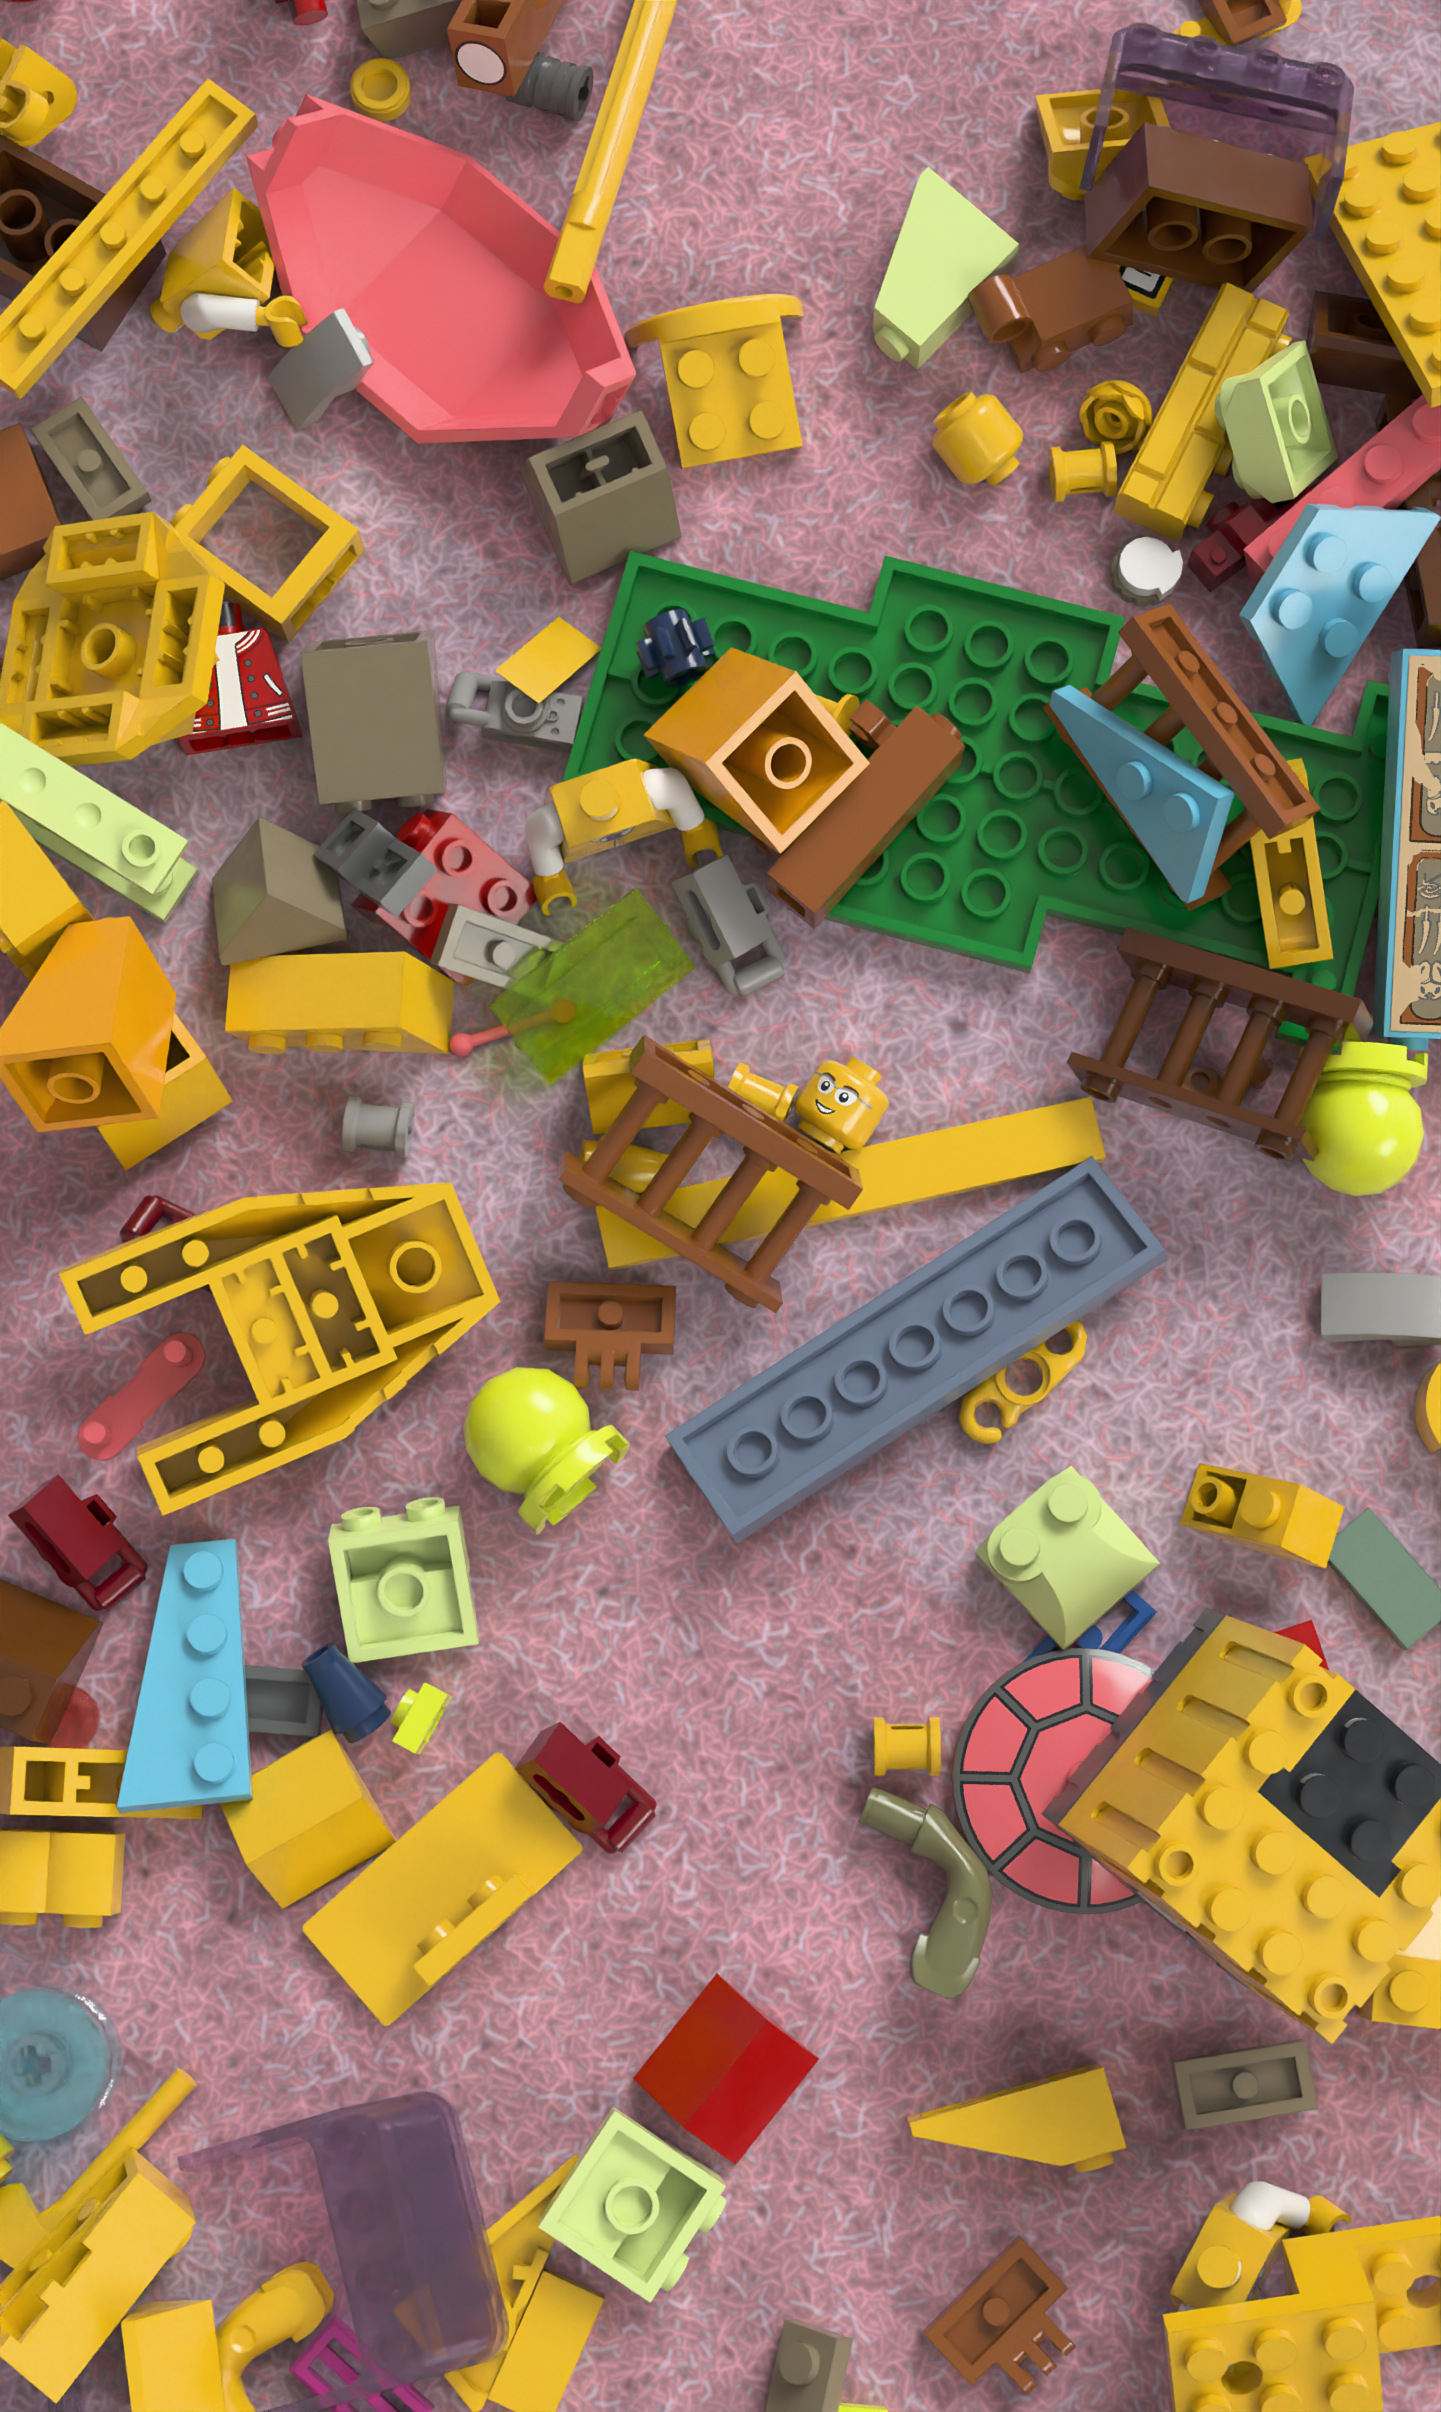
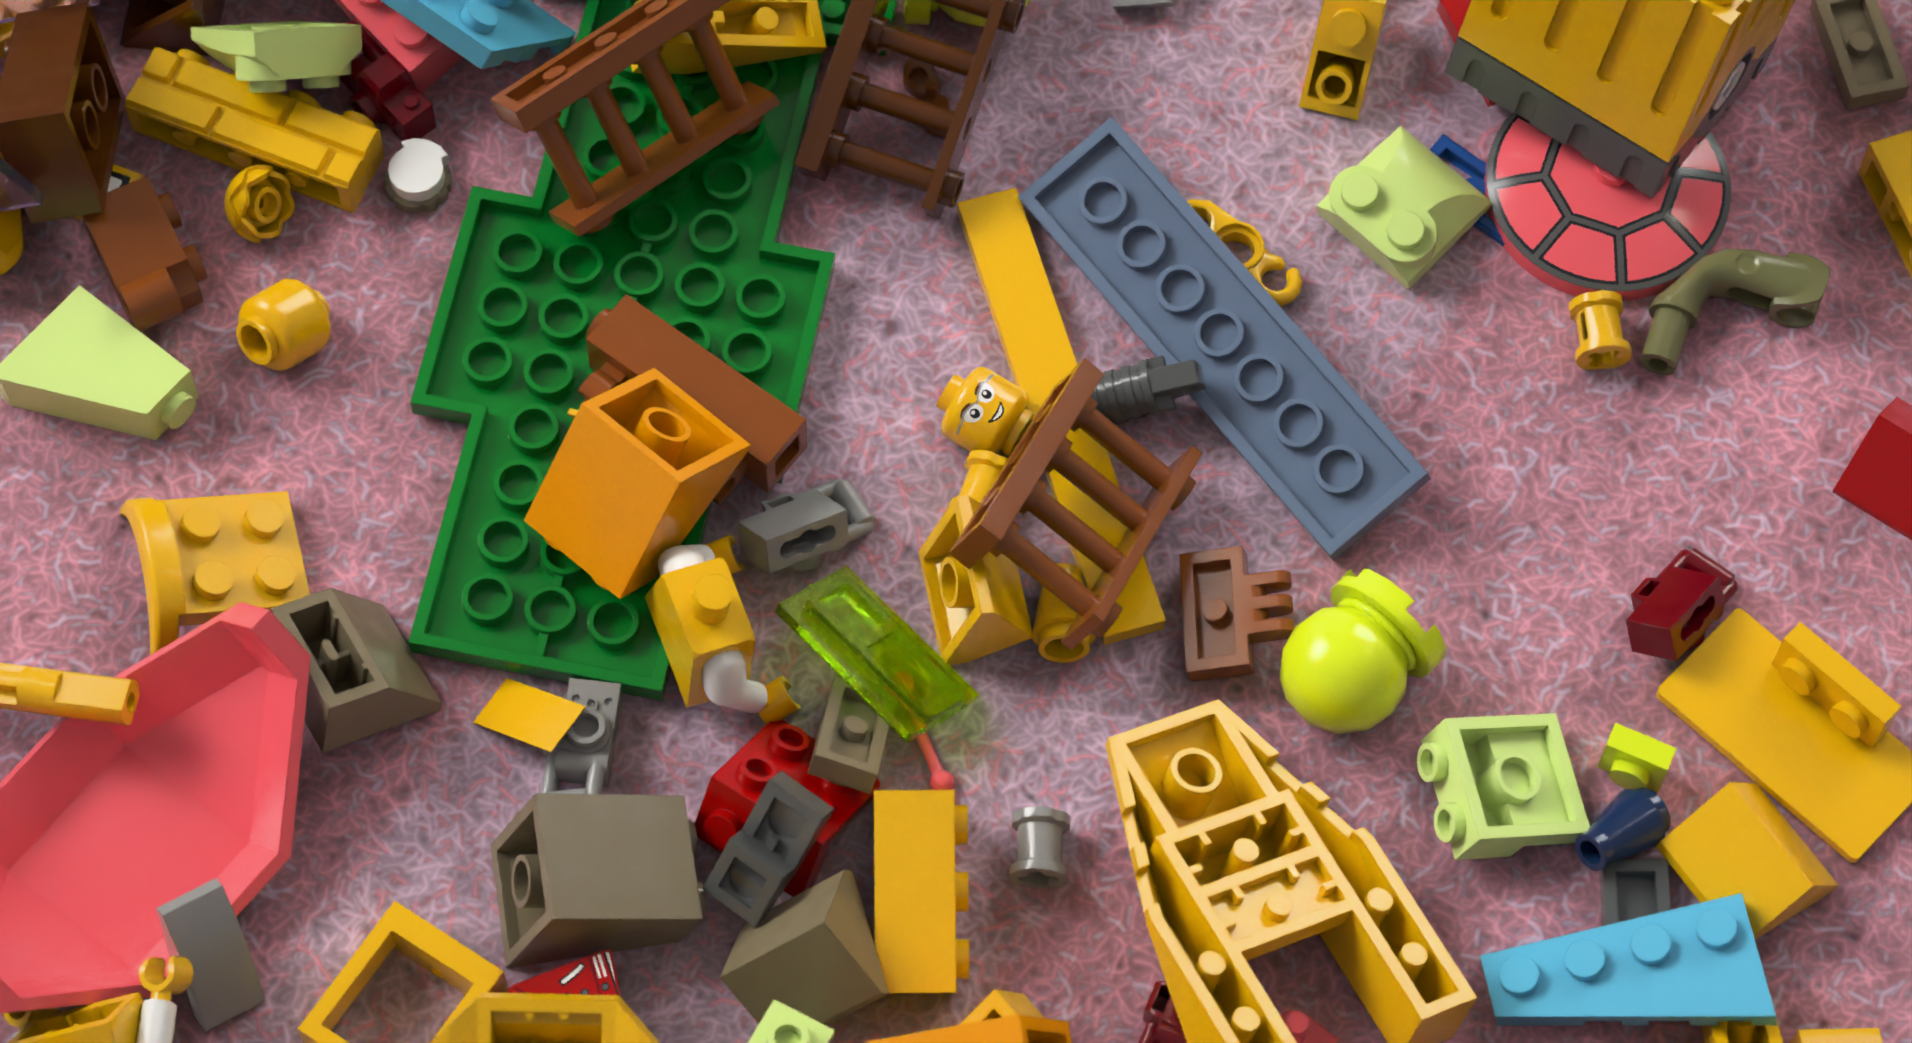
camera: 100 degrees left, 15 degrees down
(675, 648) = (525, 574): dark blue gear -> none
(857, 1260) = (1146, 388): none -> dark grey hinge
(1082, 471) = (316, 232): yellow bush -> none
(1163, 797) = (678, 113): medium azure wing -> none

